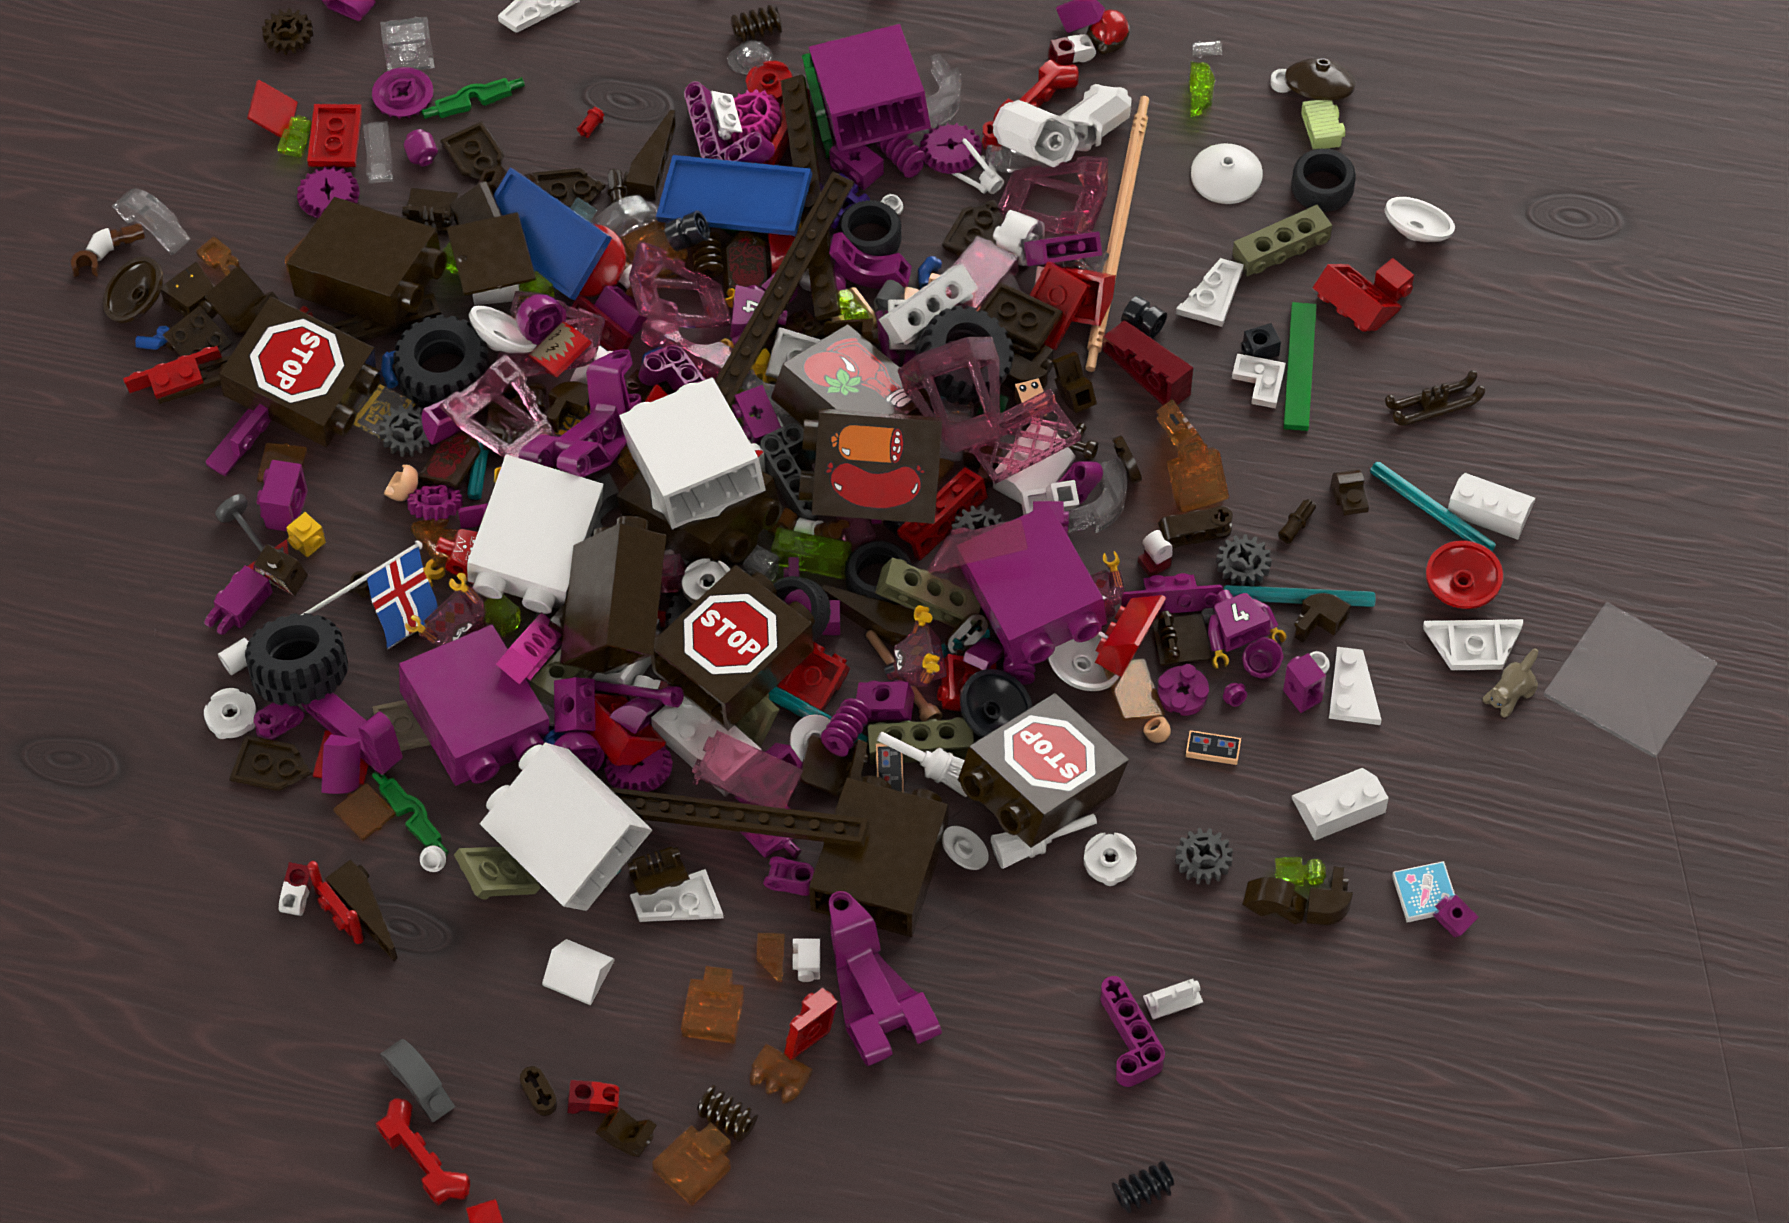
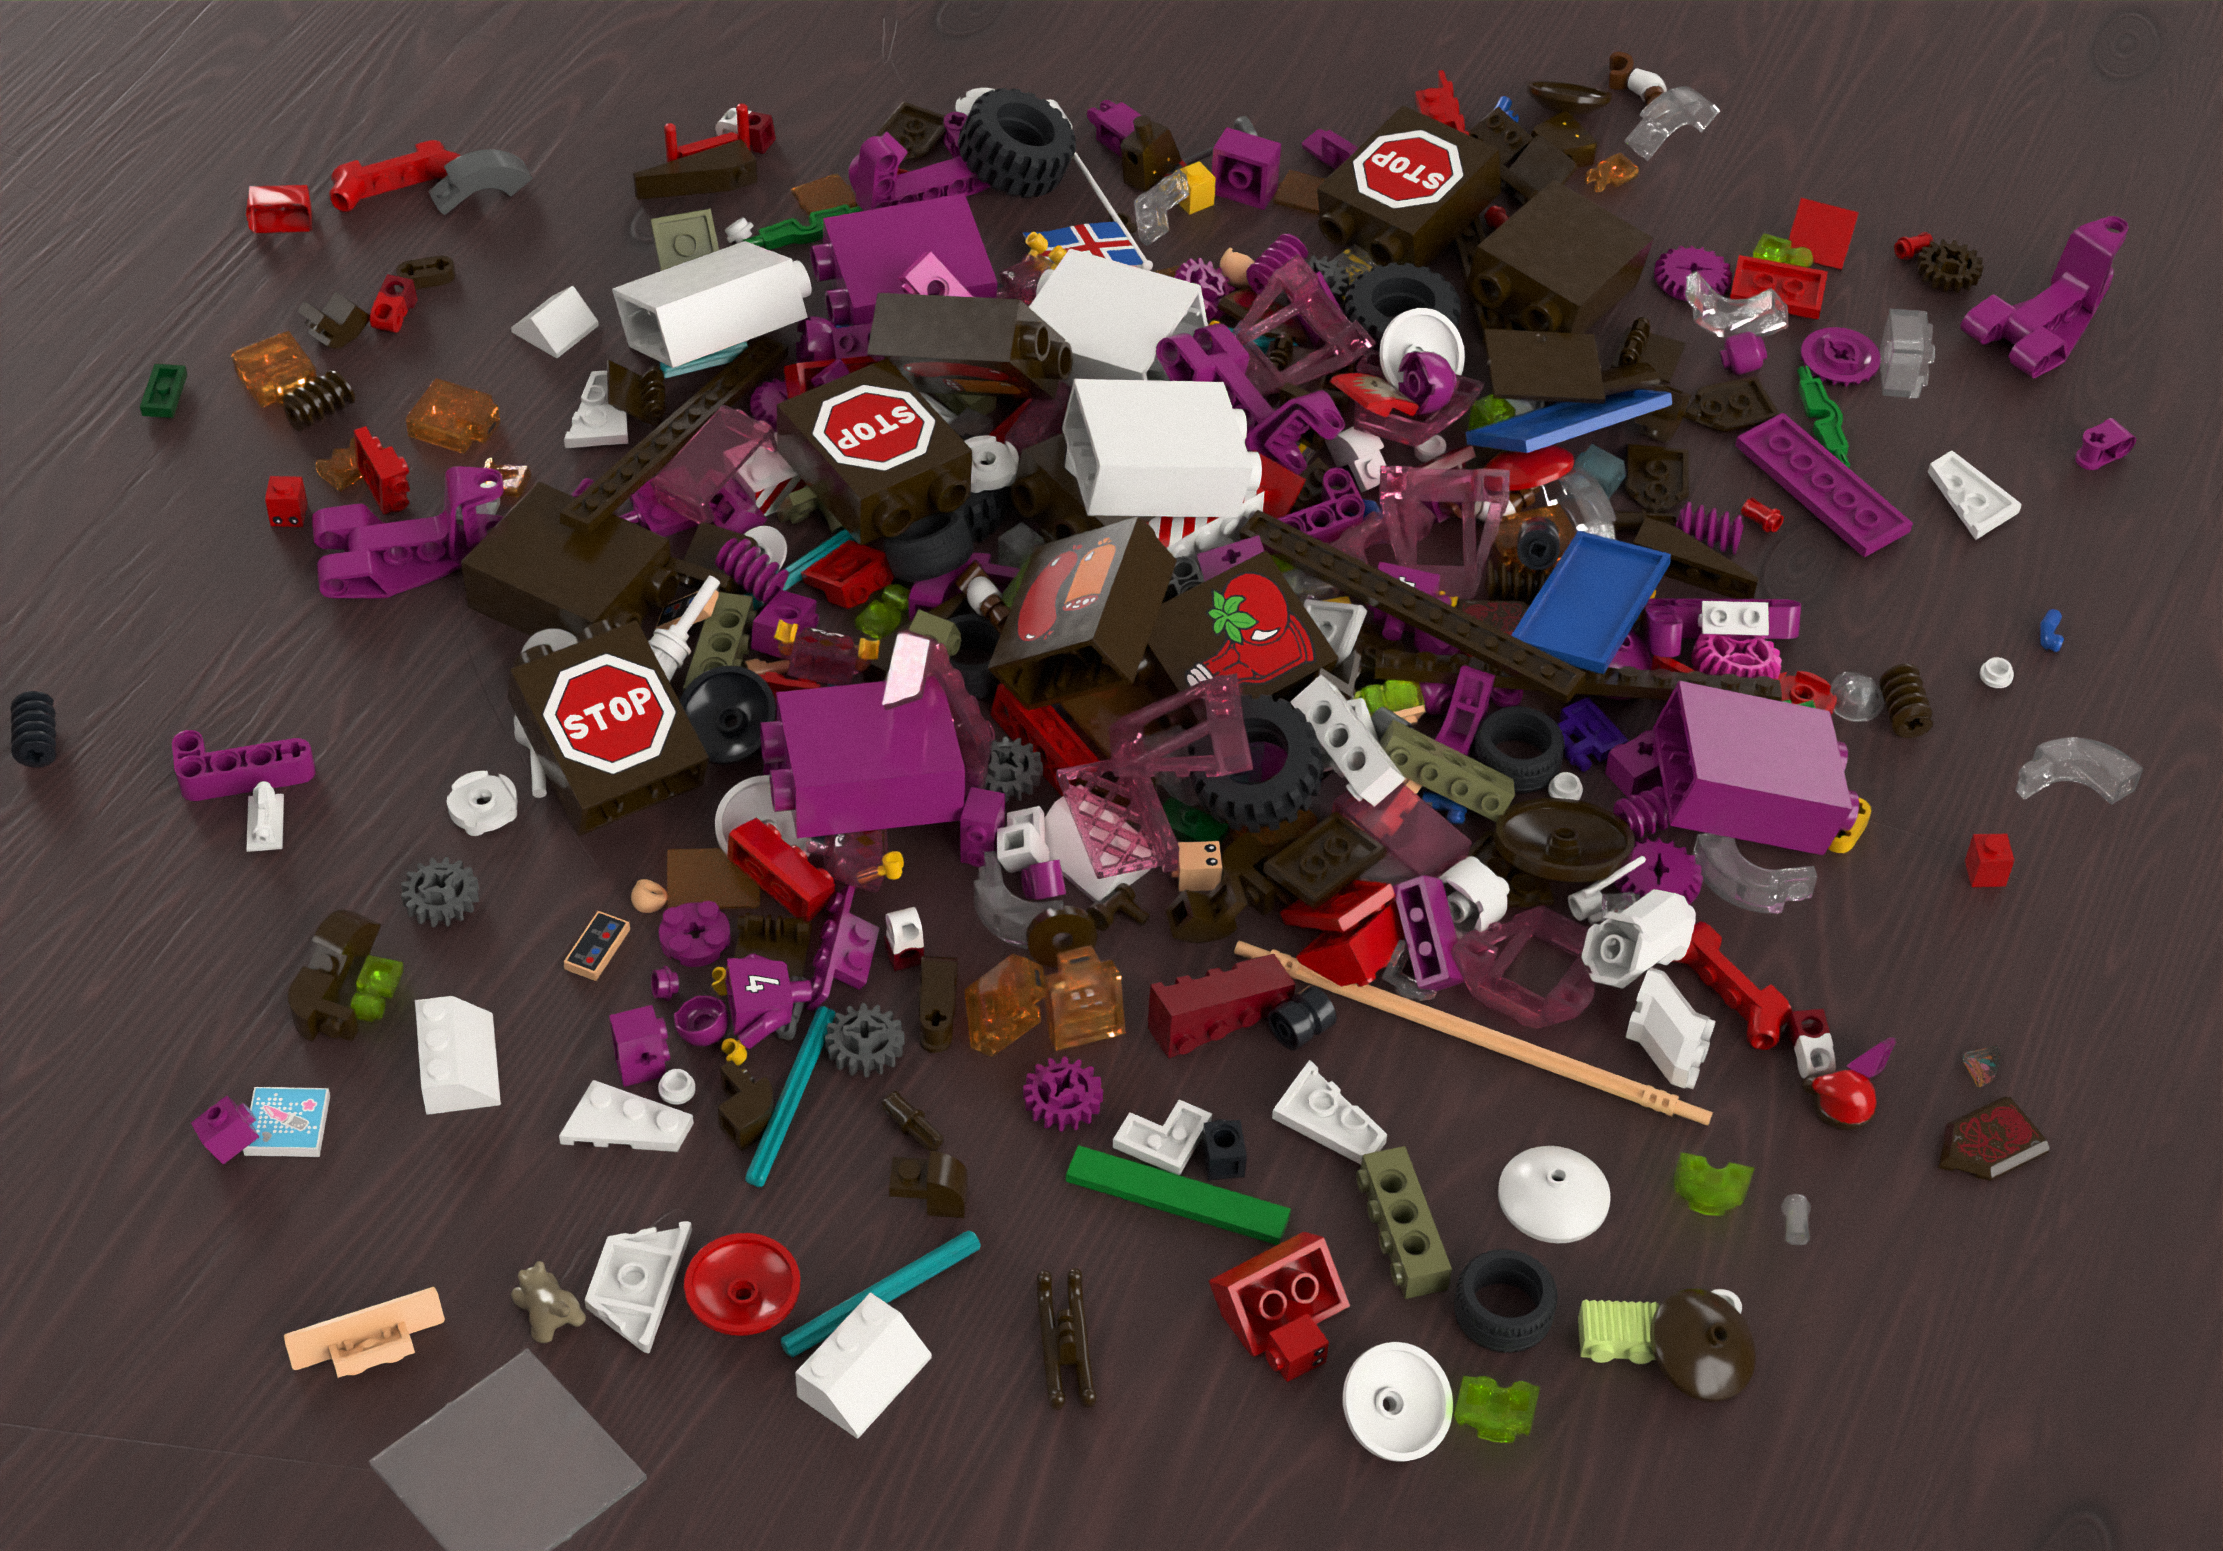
camera: 100 degrees right, 10 degrees down
(269, 60) = (1907, 247): none -> red pin
(338, 560) = (1153, 205): none -> clear plate
(409, 450) = (1273, 258): none -> magenta piece
(548, 90) = (1824, 484): none -> magenta plate
(618, 147) = (1711, 527): none -> magenta piece
(839, 560) = (983, 595): none -> reddish brown piece
(848, 648) = (881, 619): none -> clear neon green plate
(848, 1095) = (286, 501): none -> red brick
(918, 257) = (1448, 771): none -> olive brick
(948, 193) = (1564, 839): none -> dark brown dish
(1248, 439) = (1062, 1093): none -> magenta gear
(1399, 171) = (1496, 1410): none -> clear neon green cylinder
(1579, 777) = (367, 1335): none -> light nougat bracket

